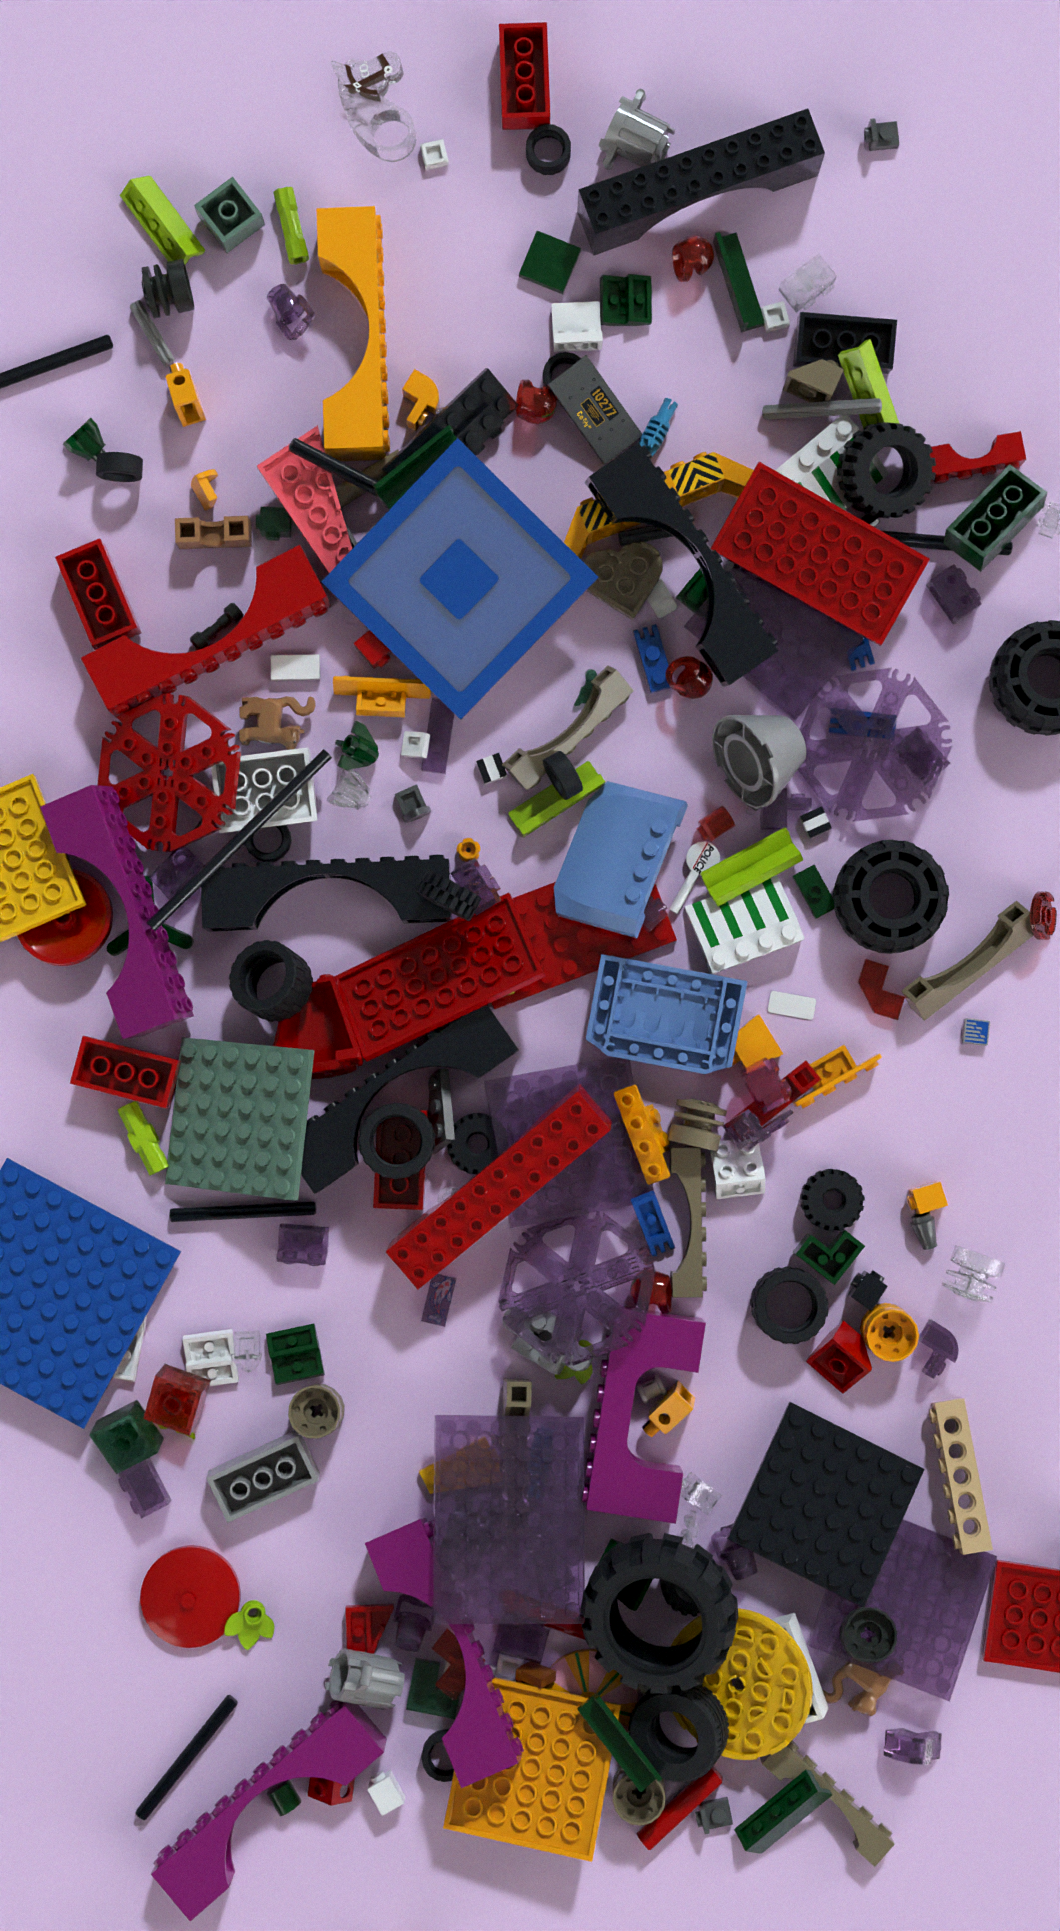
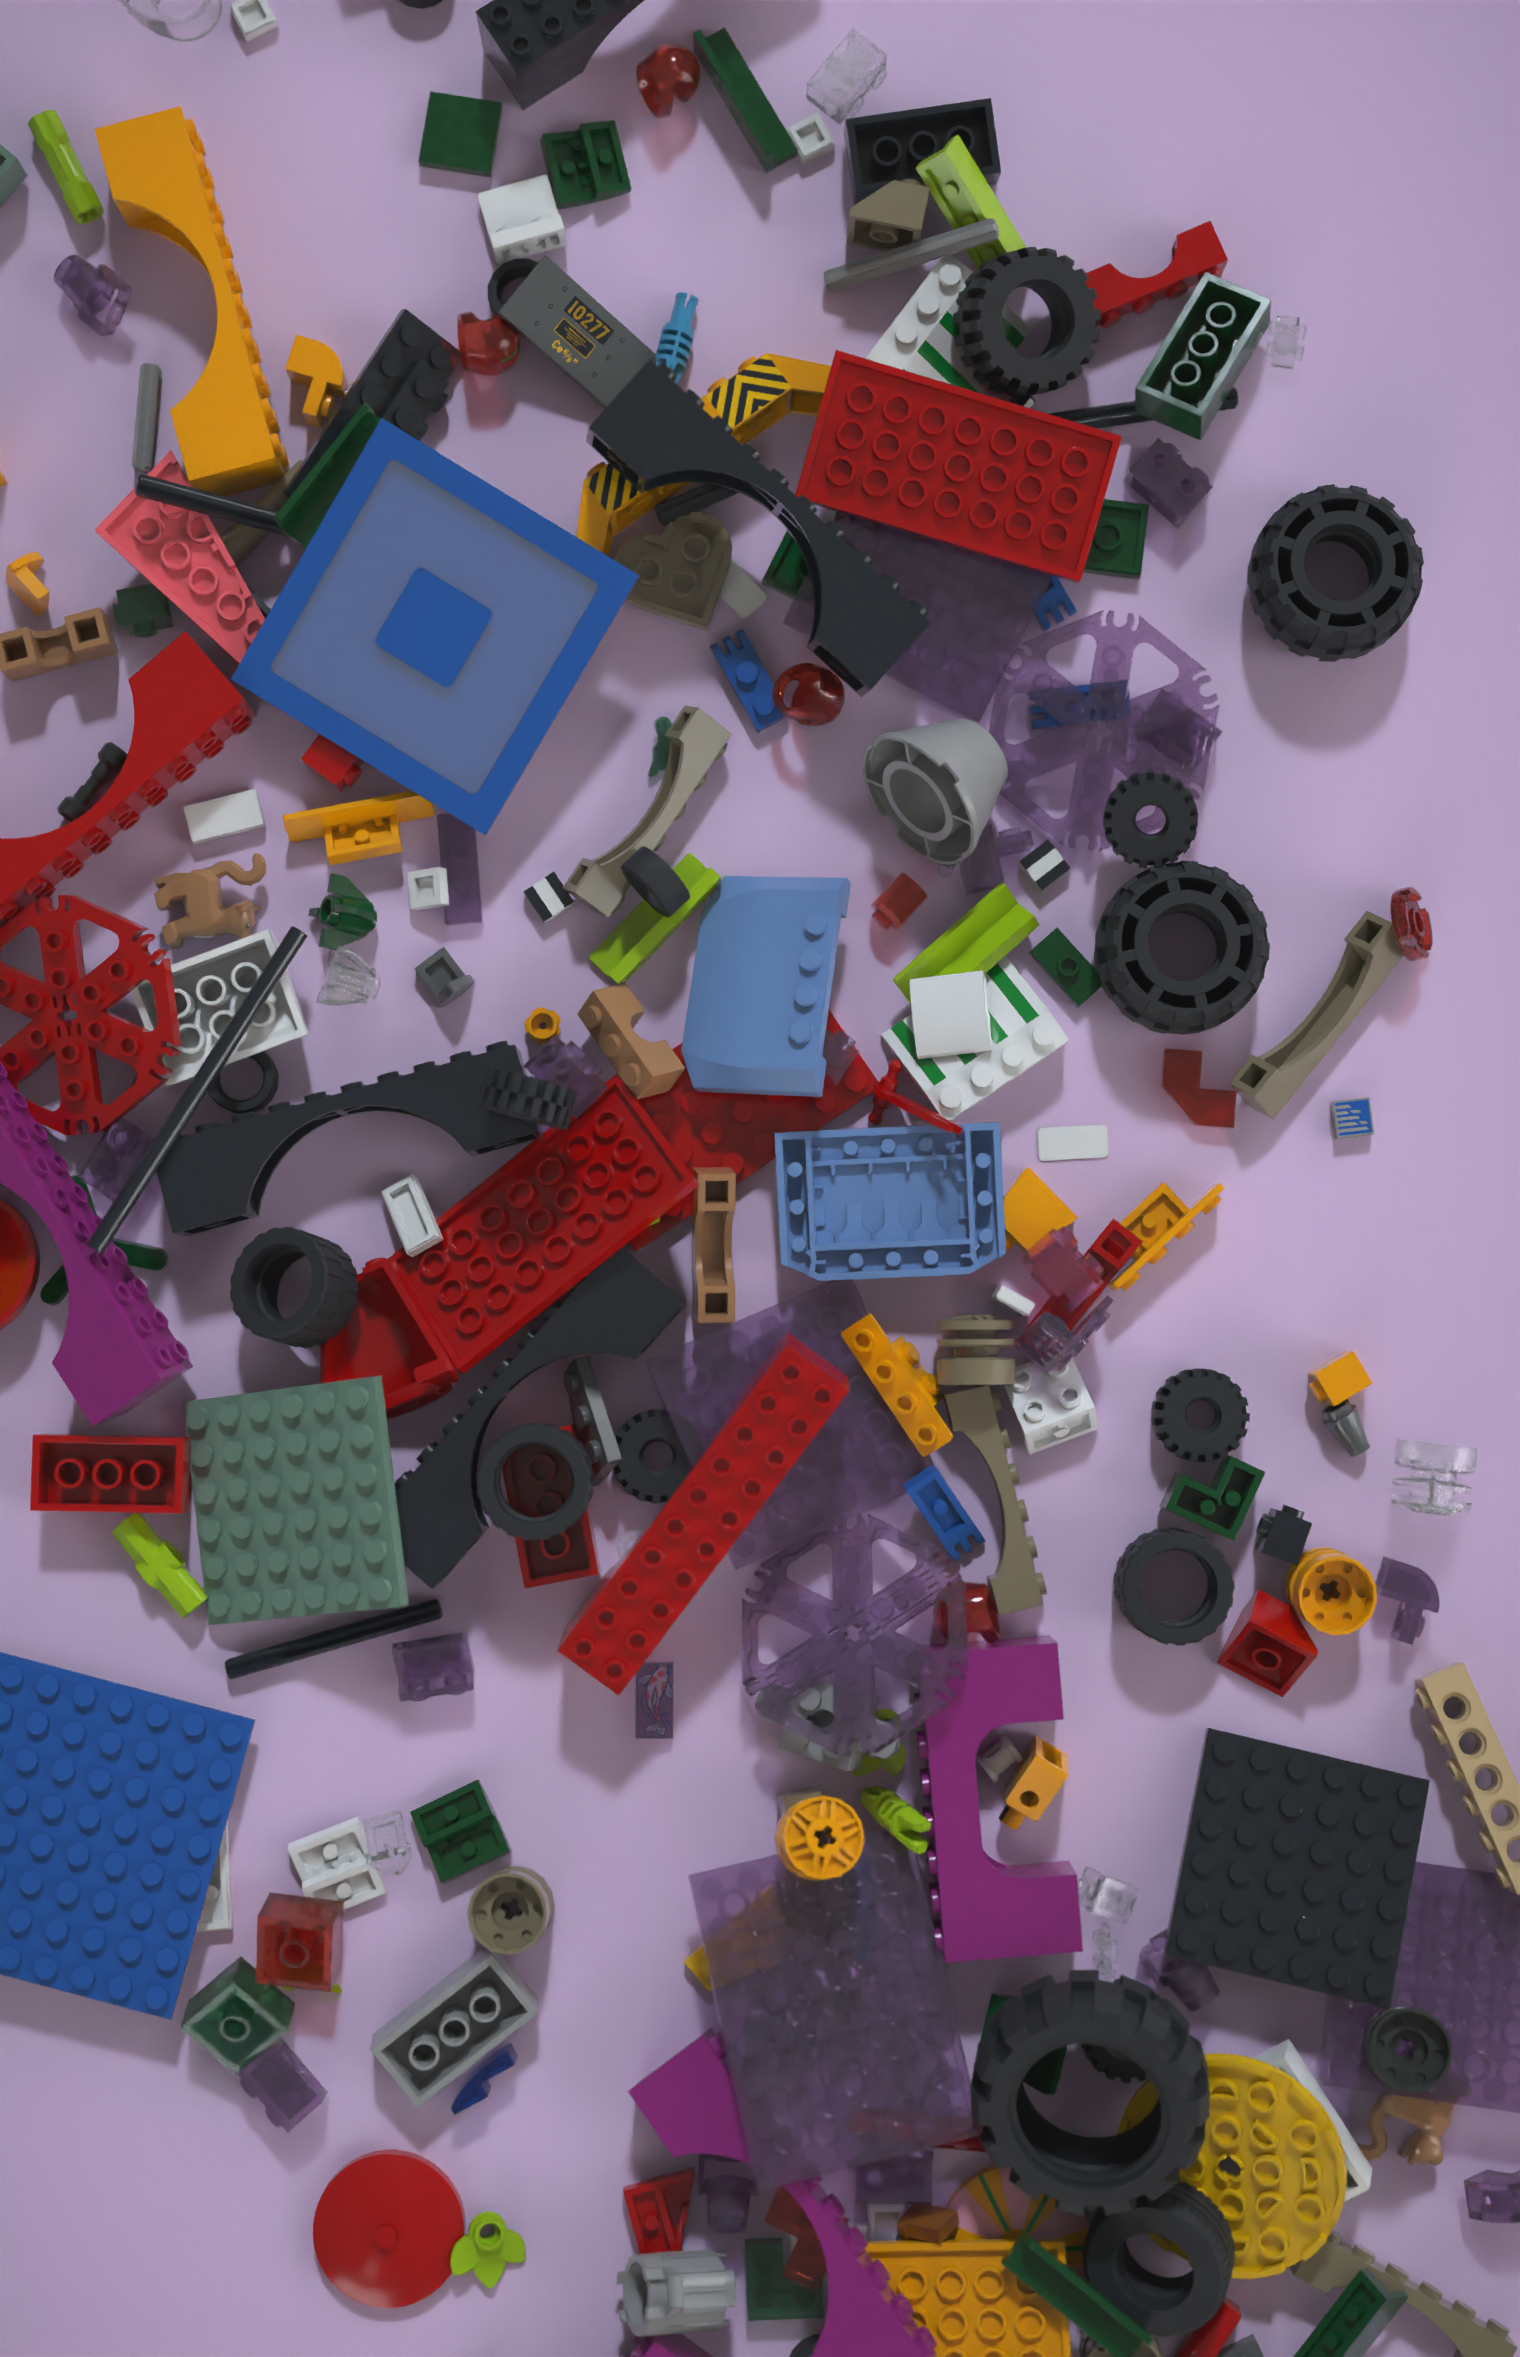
camera: 15 degrees left, 0 degrees up
(267, 1518) = (477, 2085): none -> clear blue slope
(305, 399) = (146, 417): none -> light grey axle
(356, 952) = (412, 1215): none -> white tile
(509, 1411) = (799, 1848): none -> light orange wheel
(527, 891) = (642, 1065): none -> medium nougat arch
(543, 1020) = (712, 1245): none -> medium nougat arch
(576, 1410) = (896, 1817): none -> lime hinge
(678, 946) = (886, 1094): none -> red piece
(698, 858) = (885, 959): white piece -> none
(728, 1098) = (1012, 1301): none -> white tile
(732, 904) = (950, 1014): none -> white slope
(896, 791) = (1147, 790): none -> black tyre
(913, 623) = (1118, 540): none -> dark green tile

